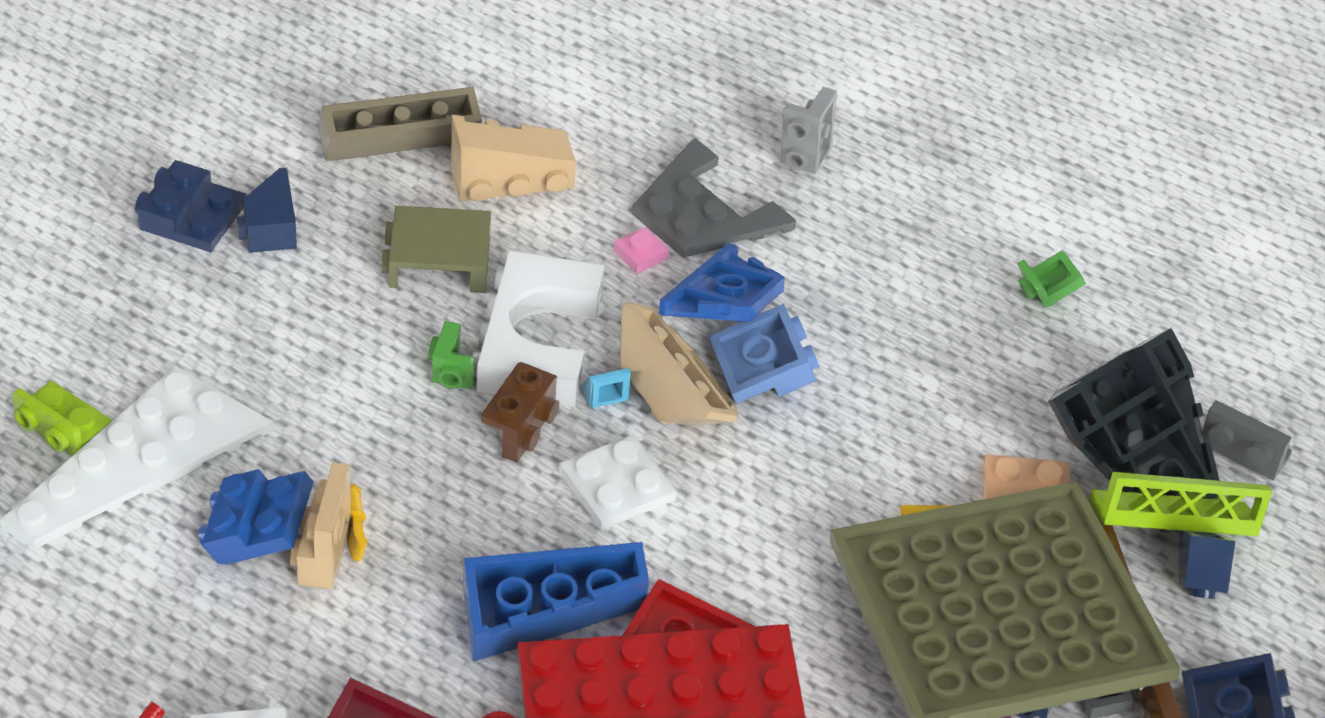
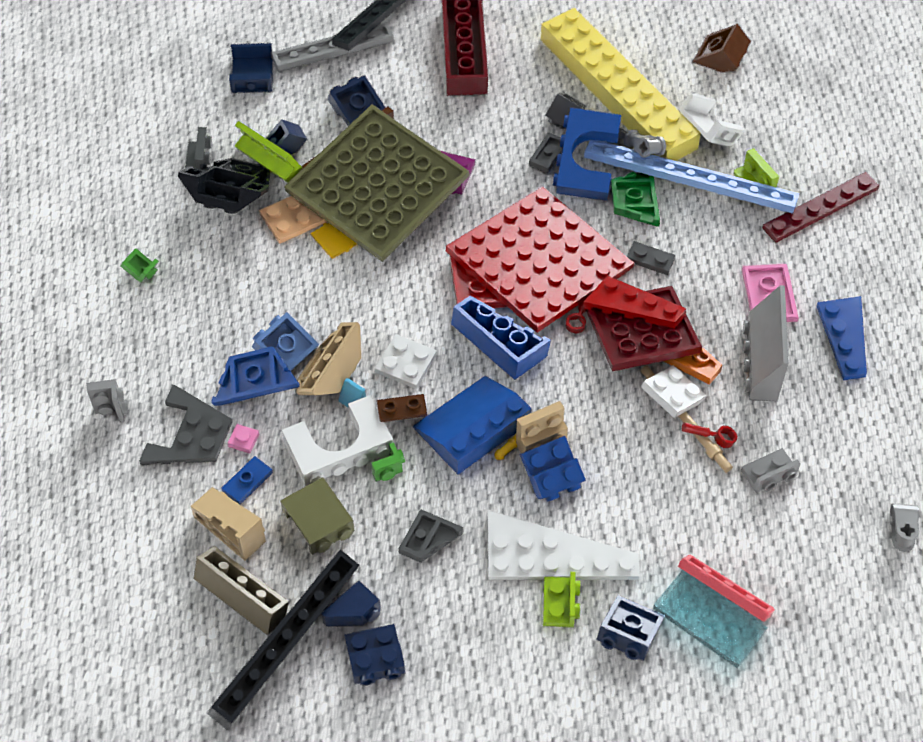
camera: 120 degrees left, 10 degrees up
(293, 132) = (282, 640): none -> black brick
(300, 341) = (428, 536): none -> dark grey wing
(432, 487) = (473, 423): none -> blue slope
(569, 223) = (247, 480): none -> blue plate

